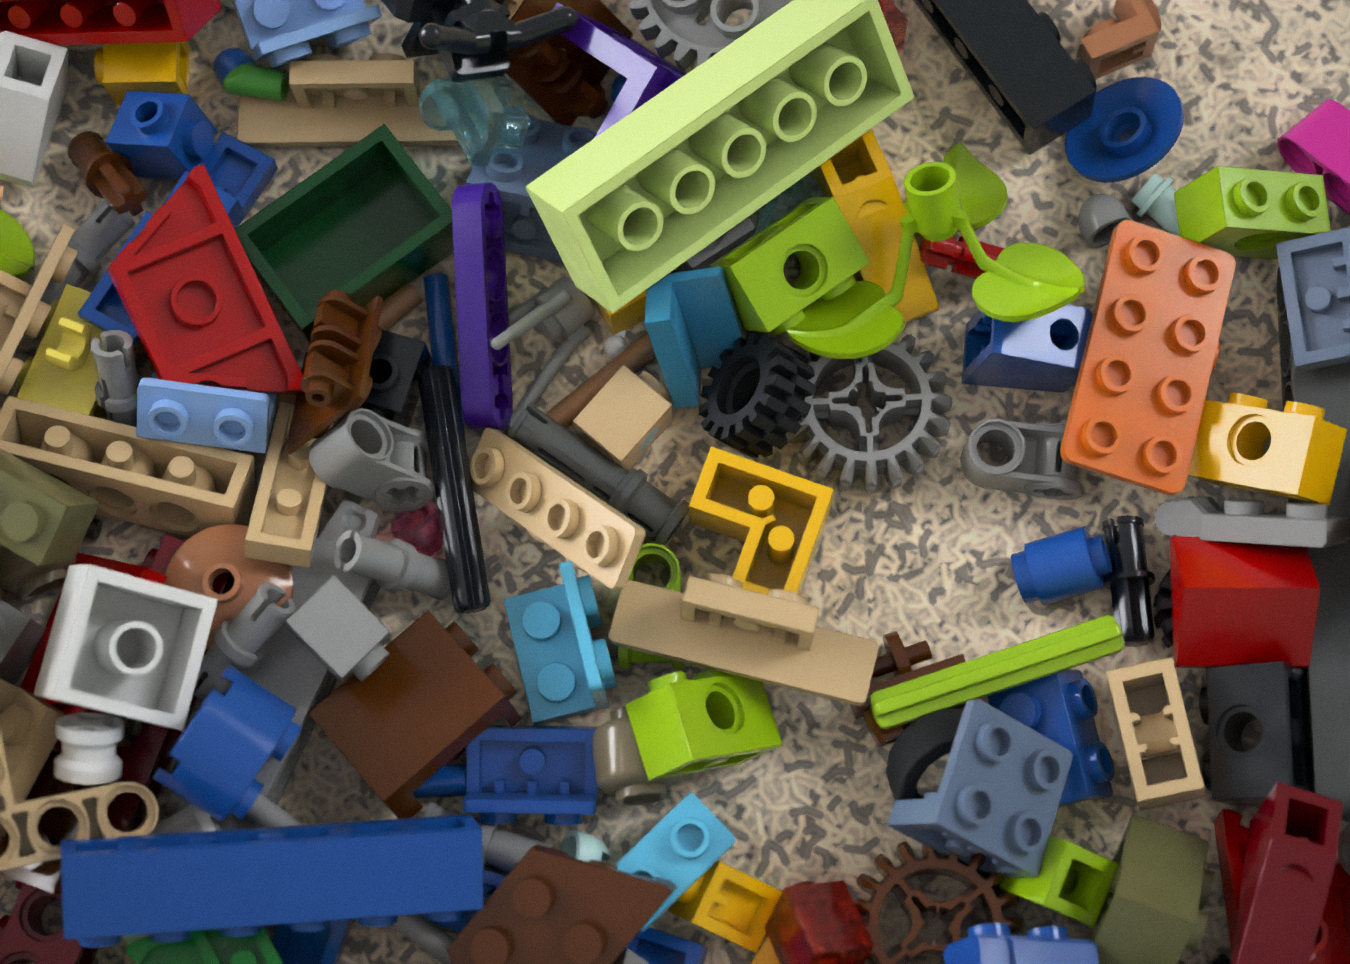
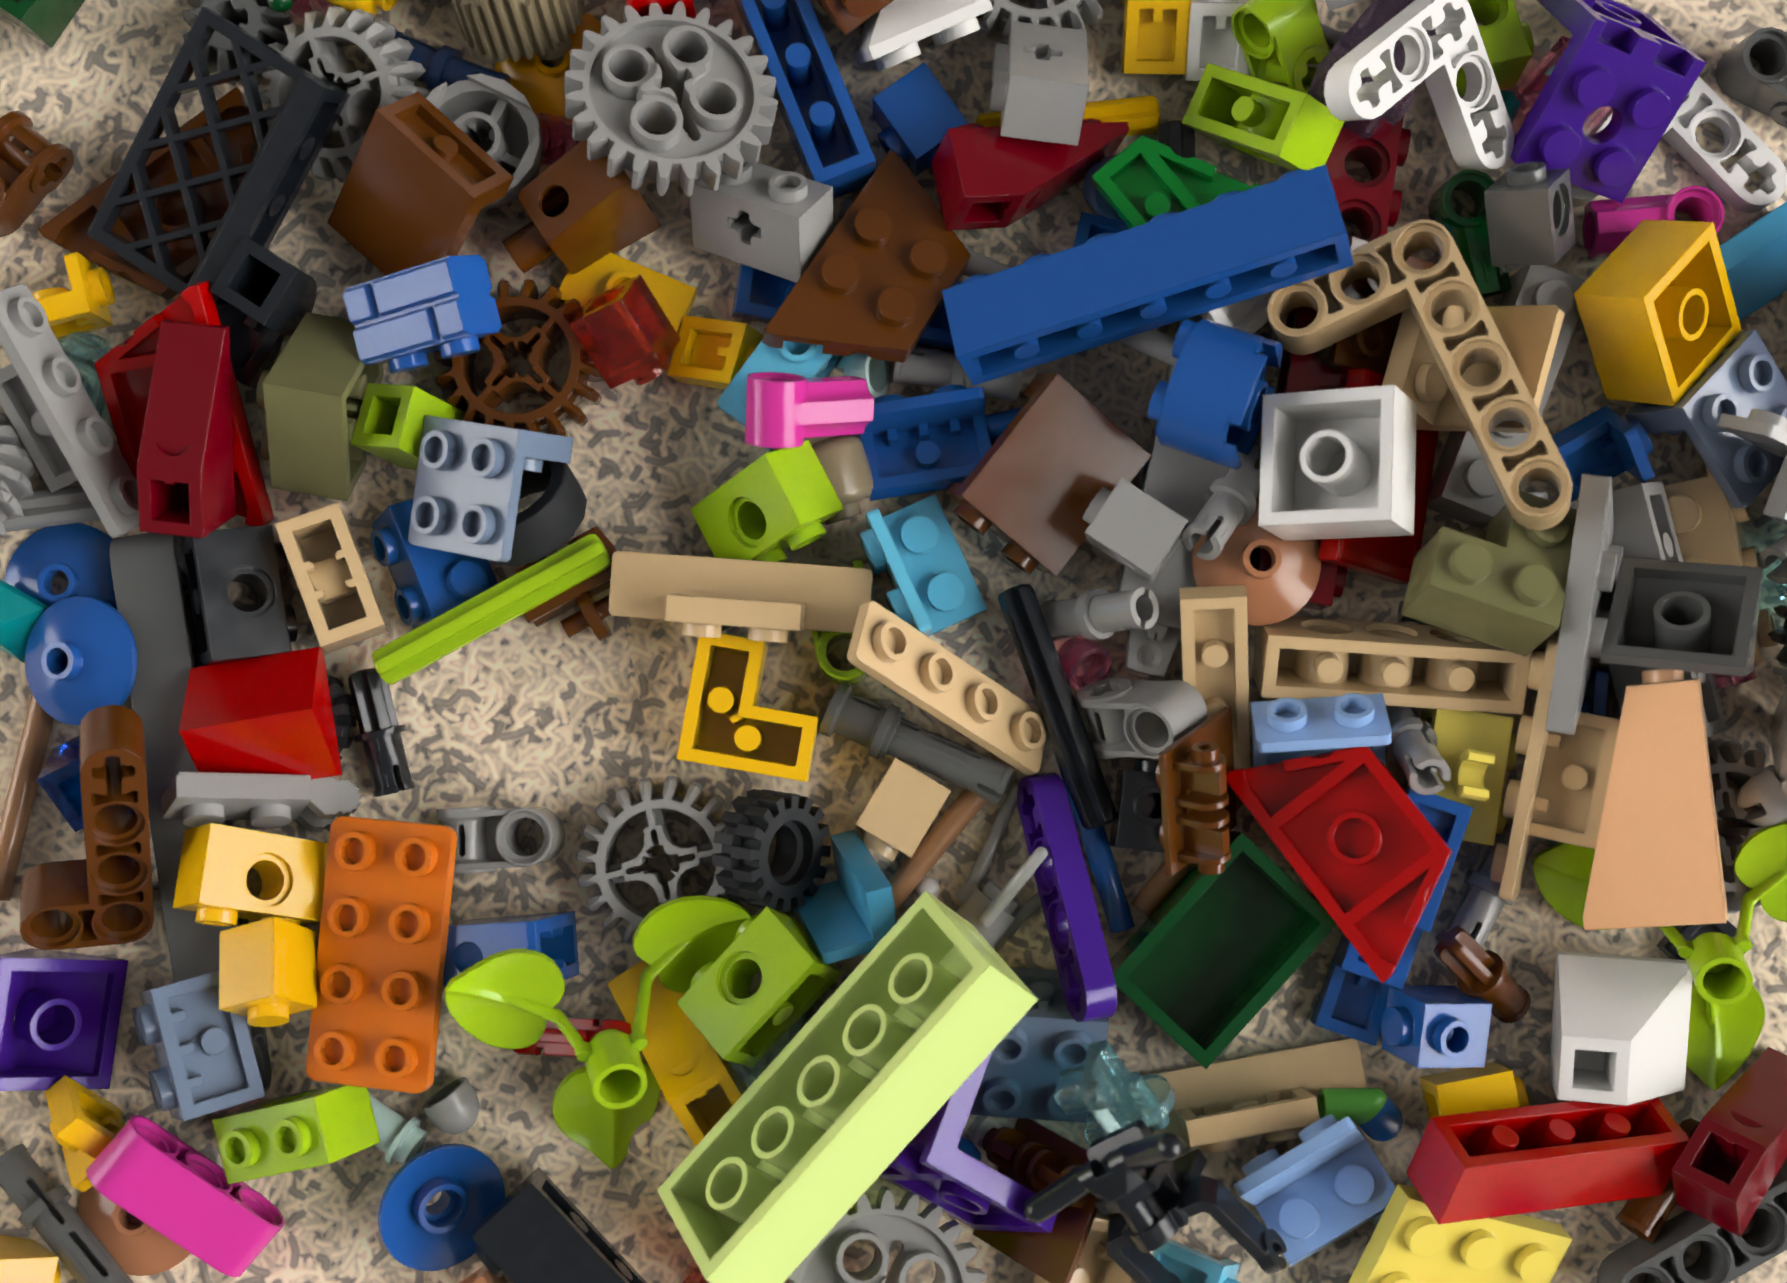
camera: 155 degrees right, 10 degrees up
(88, 748) = (1350, 359): white wheel -> none
(656, 811) = (792, 407): none -> dark pink piece
(1061, 566) = (446, 732): blue brick -> none
(1260, 354) = (268, 971): none -> yellow brick

